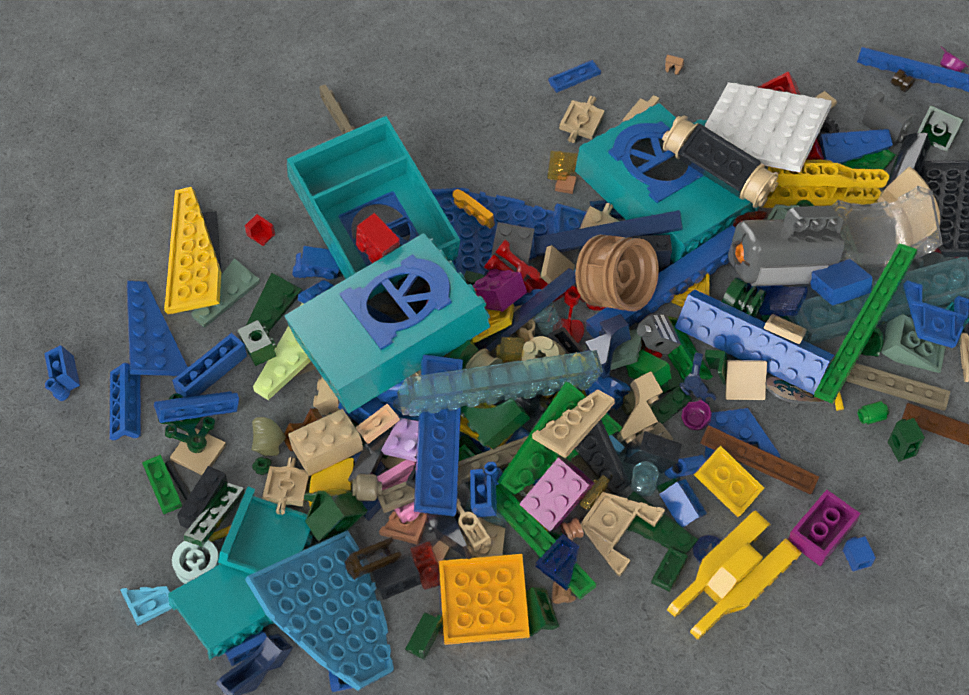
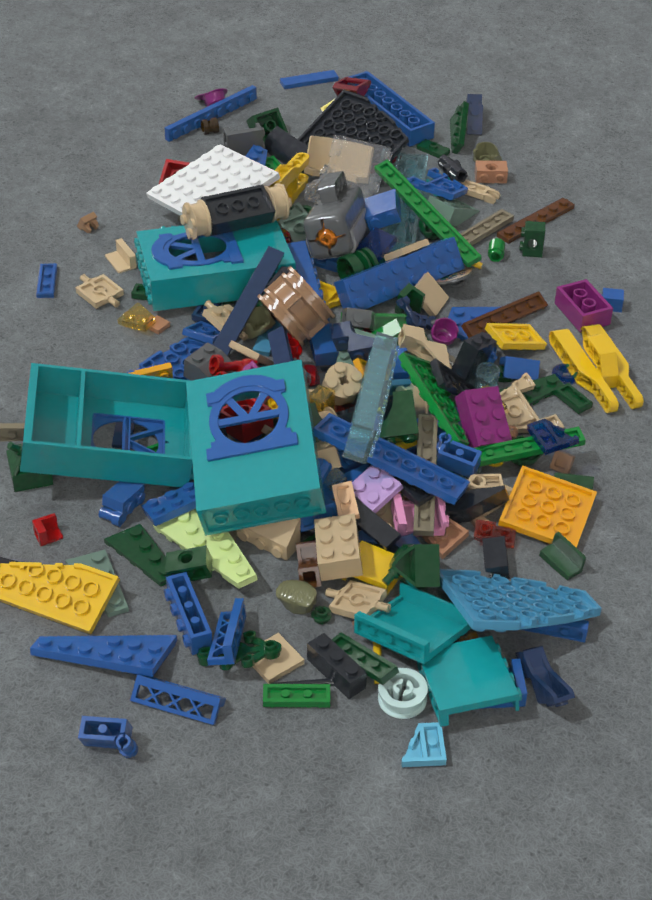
camera: 65 degrees left, 15 degrees down
(366, 487) = (409, 529): dark tan head -> none
(371, 558) = (477, 564): dark brown window -> none
(375, 238) = (165, 418): red brick -> none
(574, 424) = (438, 369): tan wing -> none

